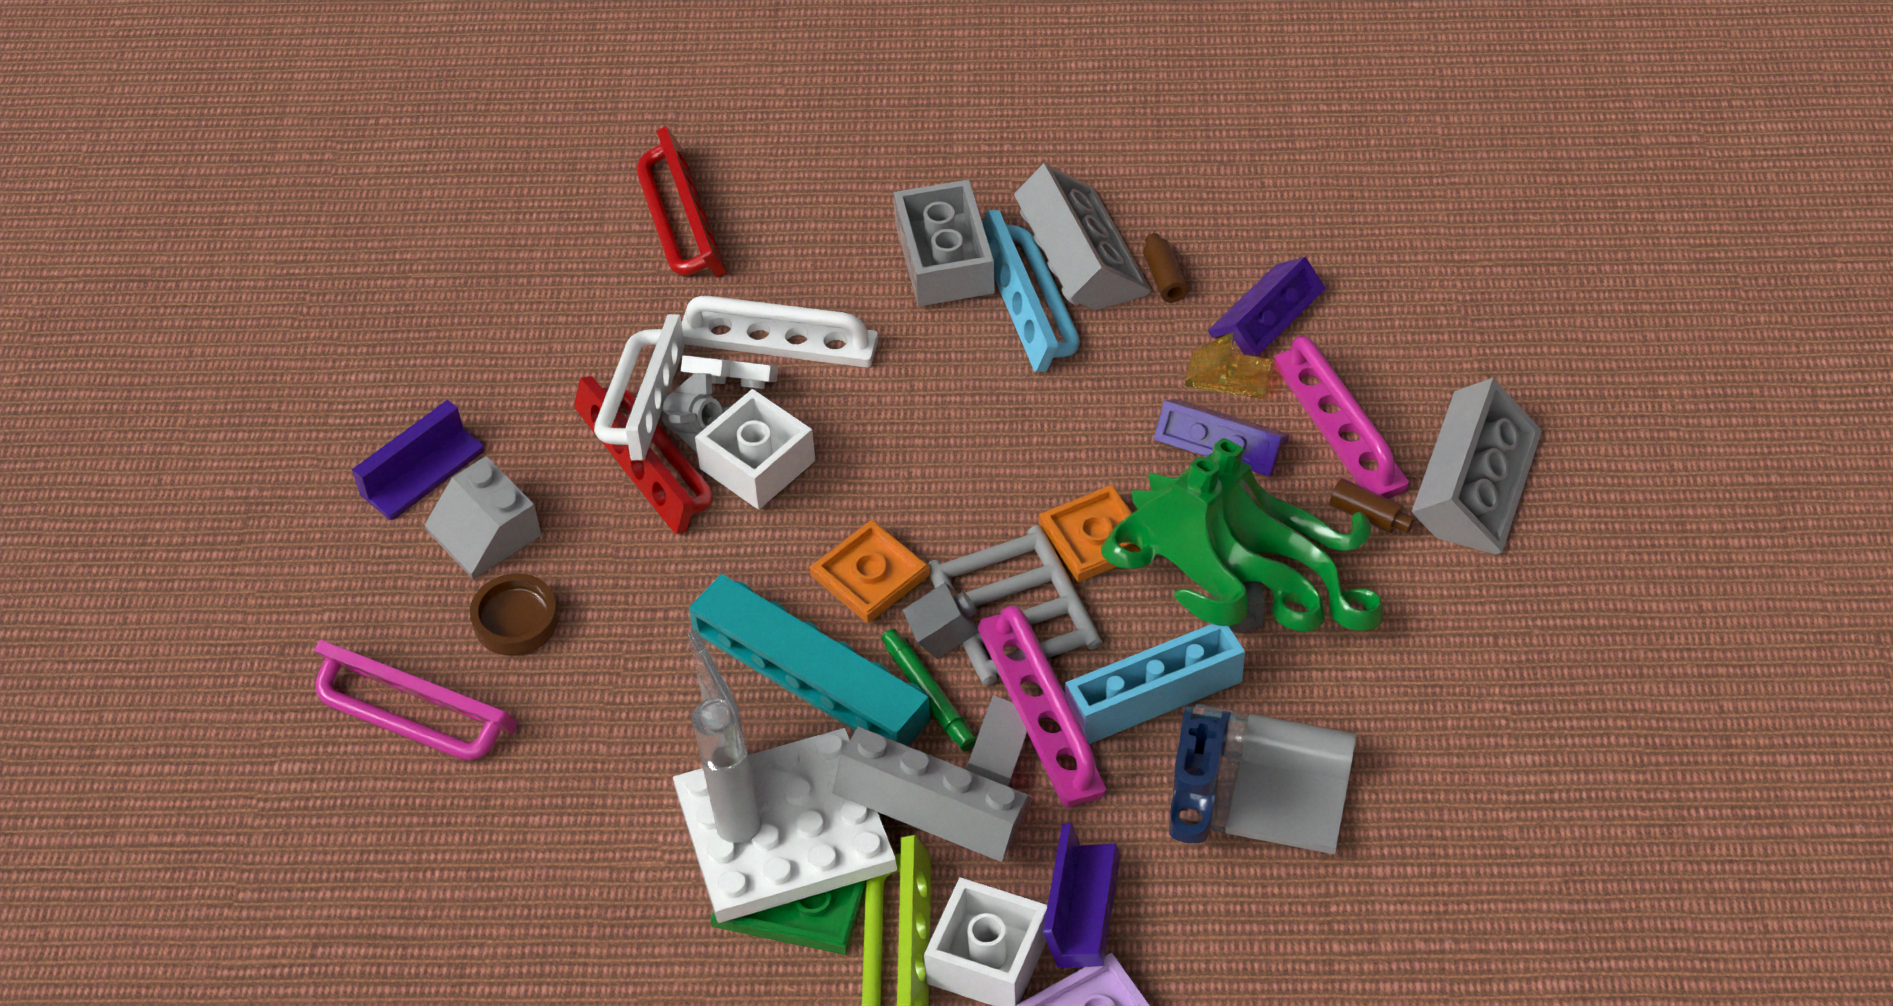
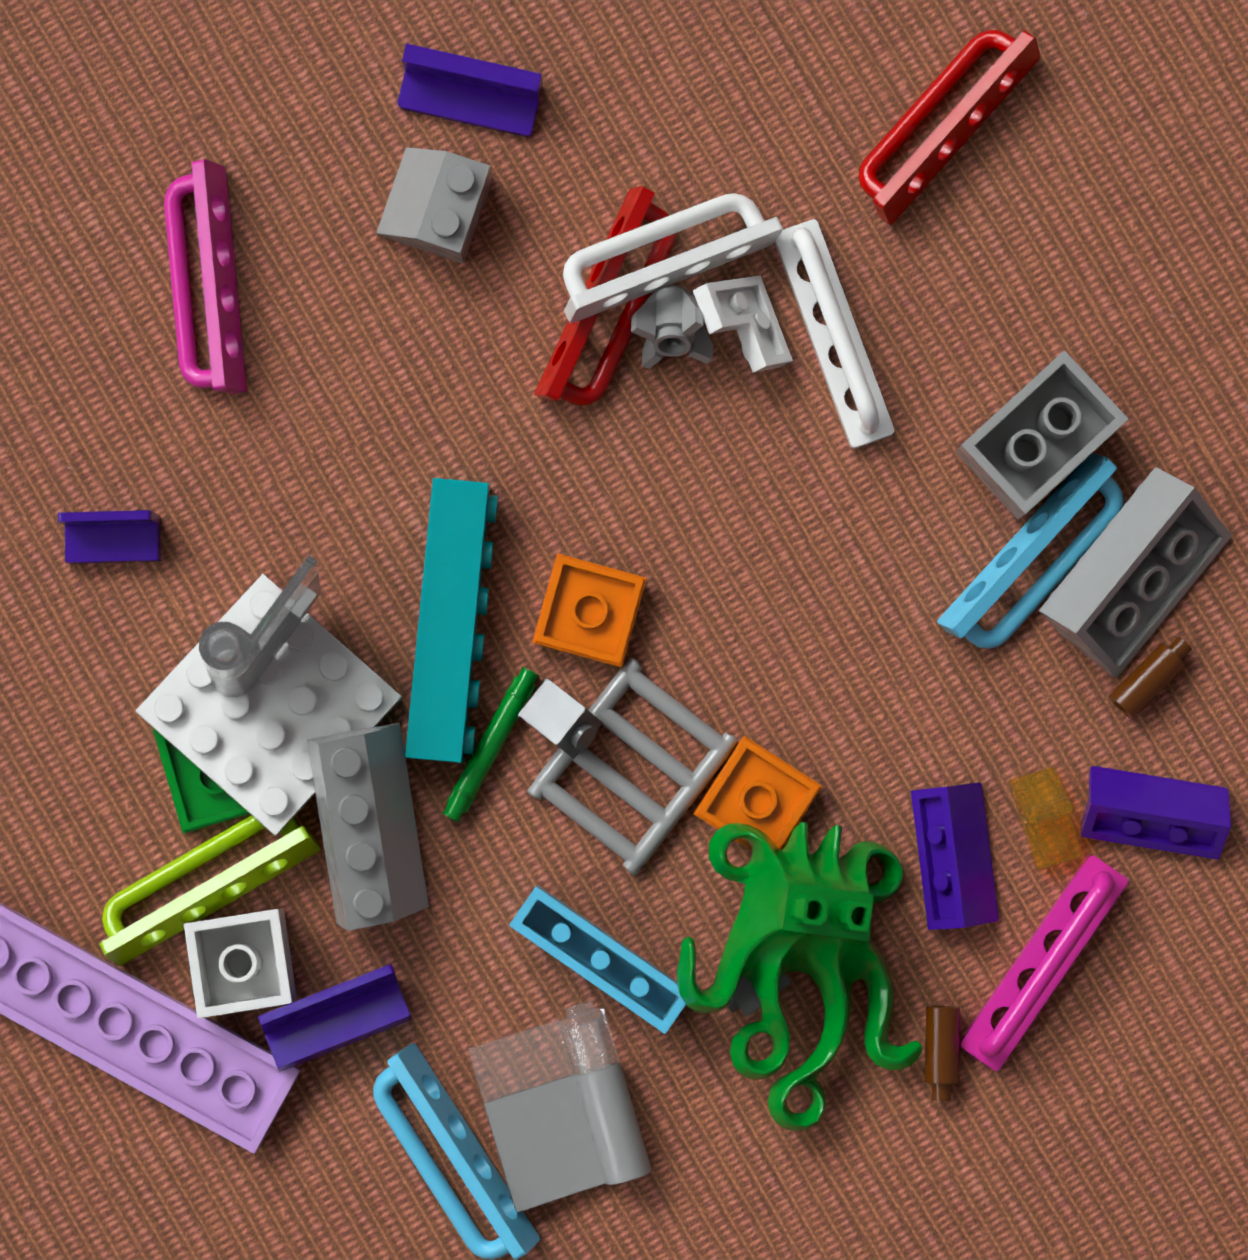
camera: 60 degrees right, 35 degrees up
(514, 614) = (351, 307): reddish brown piece -> none
(553, 871) = (111, 536): none -> dark purple panel
(755, 449) = (659, 414): white brick -> none
(998, 742) = (467, 845): light grey tile -> none
(1014, 629) = (471, 944): dark pink piece -> none
(1163, 869) = (463, 1150): none -> medium azure piece
(1197, 772) = (537, 1056): dark blue piece -> none
(1478, 468) = (1049, 1133): light grey slope -> none

